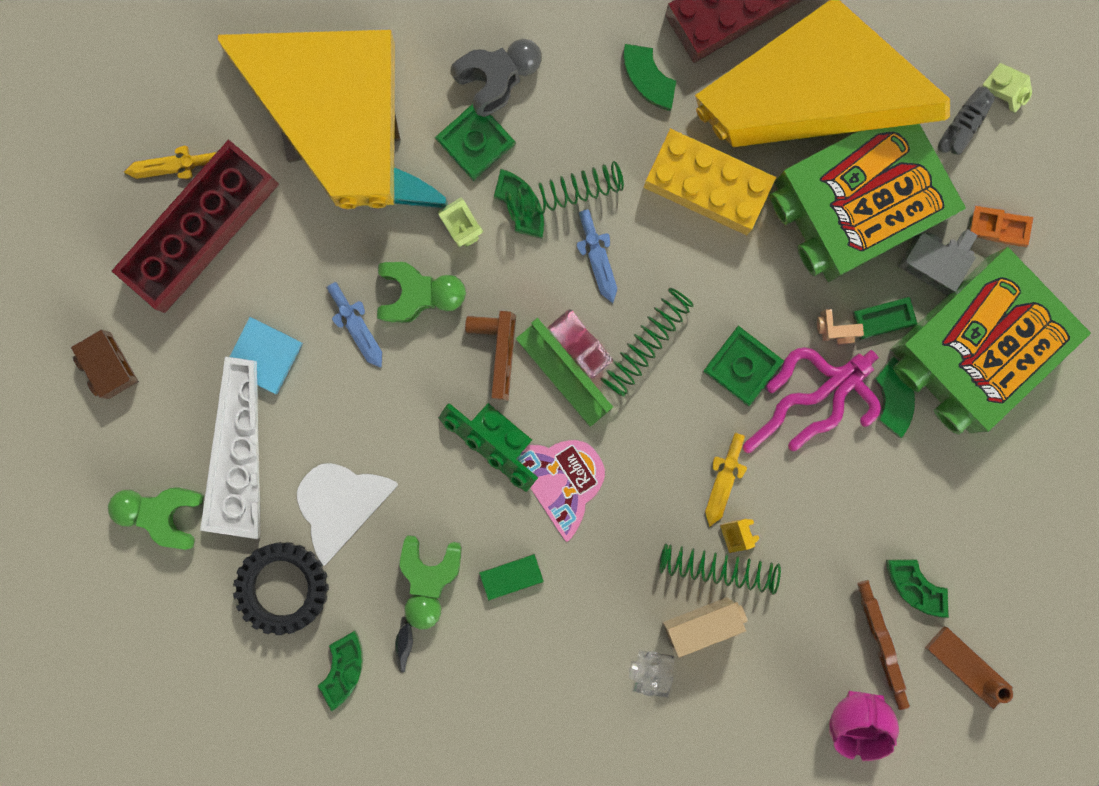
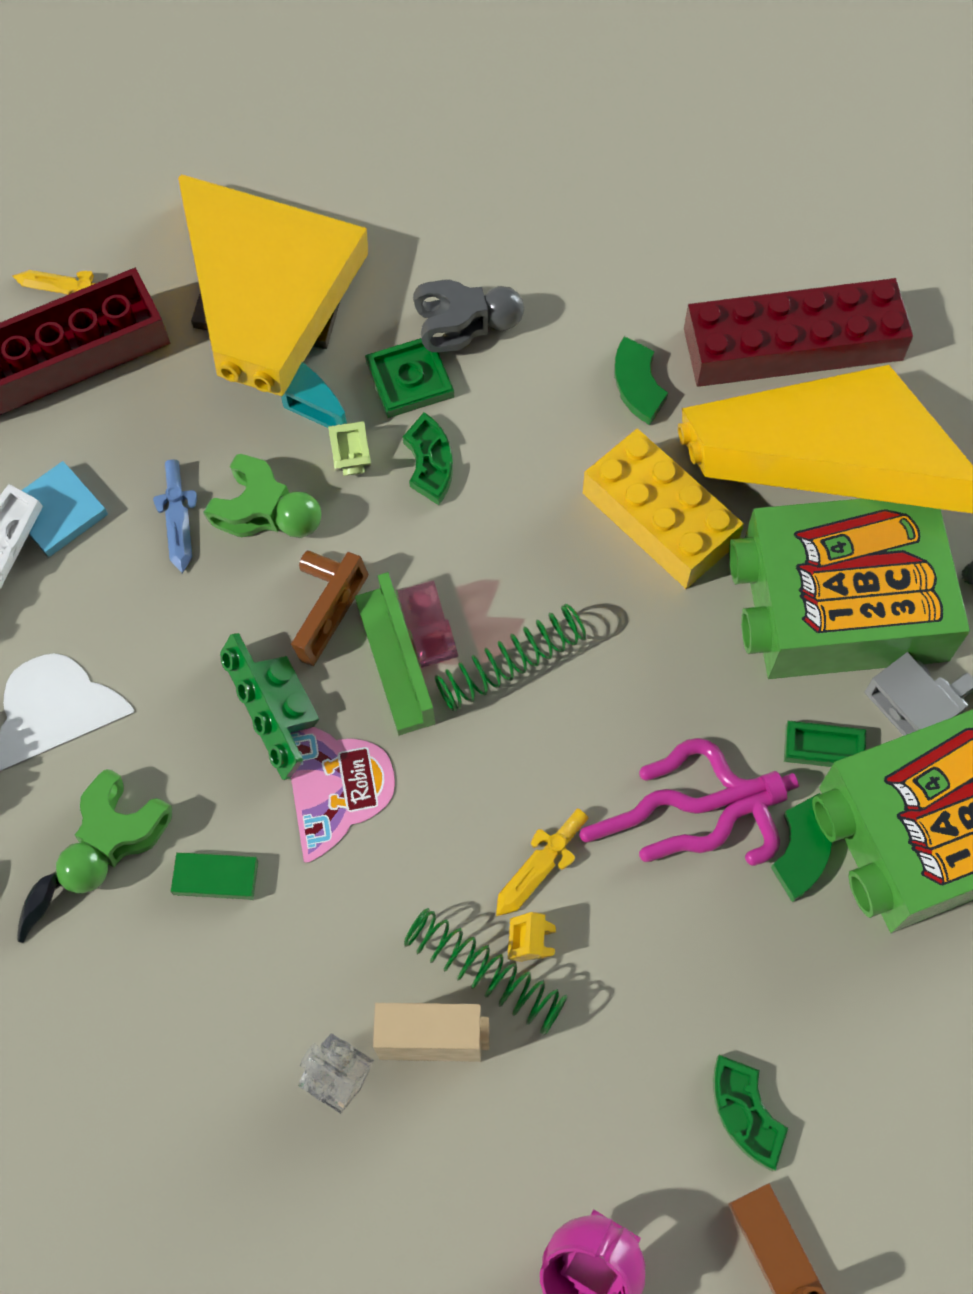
camera: 25 degrees right, 20 degrees down
(509, 200) = (513, 456): green piece -> none
(598, 256) = (495, 544): medium blue sword -> none
(743, 366) = (620, 734): green tile -> none
(843, 334) = (761, 738): light nougat bracket -> none
(887, 651) = (670, 1177): dark orange piece -> none

